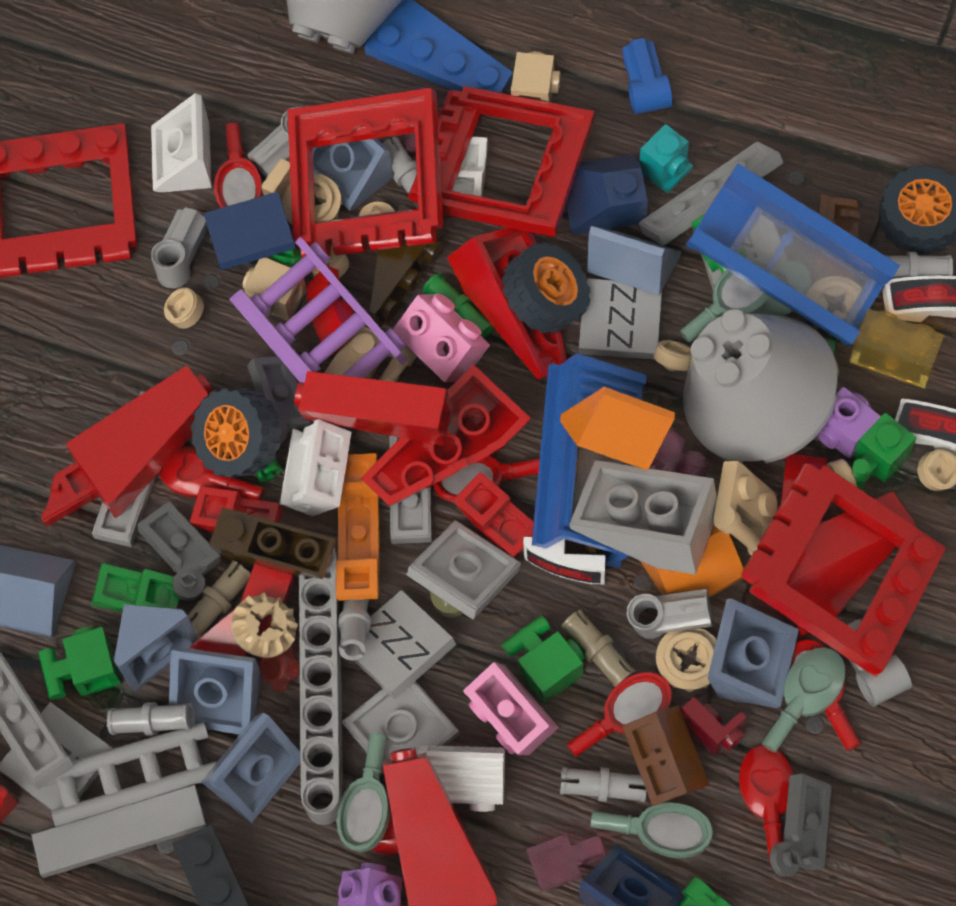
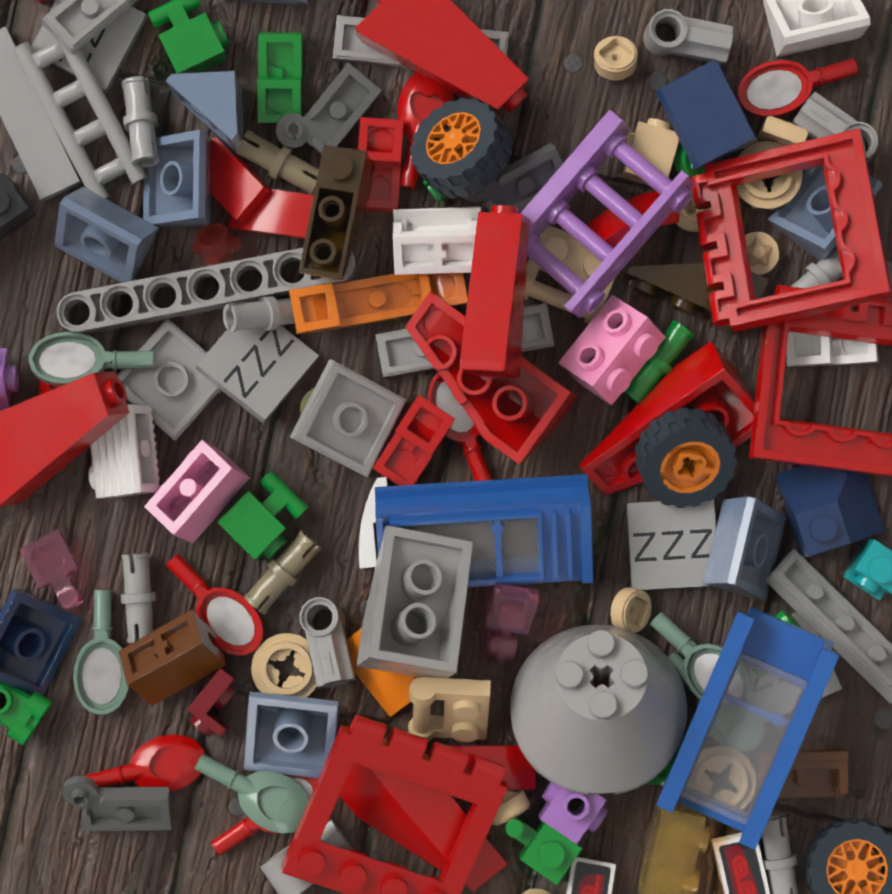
camera: 75 degrees right, 20 degrees up
(271, 642) = (239, 202): tan gear -> none
(618, 426) = (491, 561): orange slope -> none

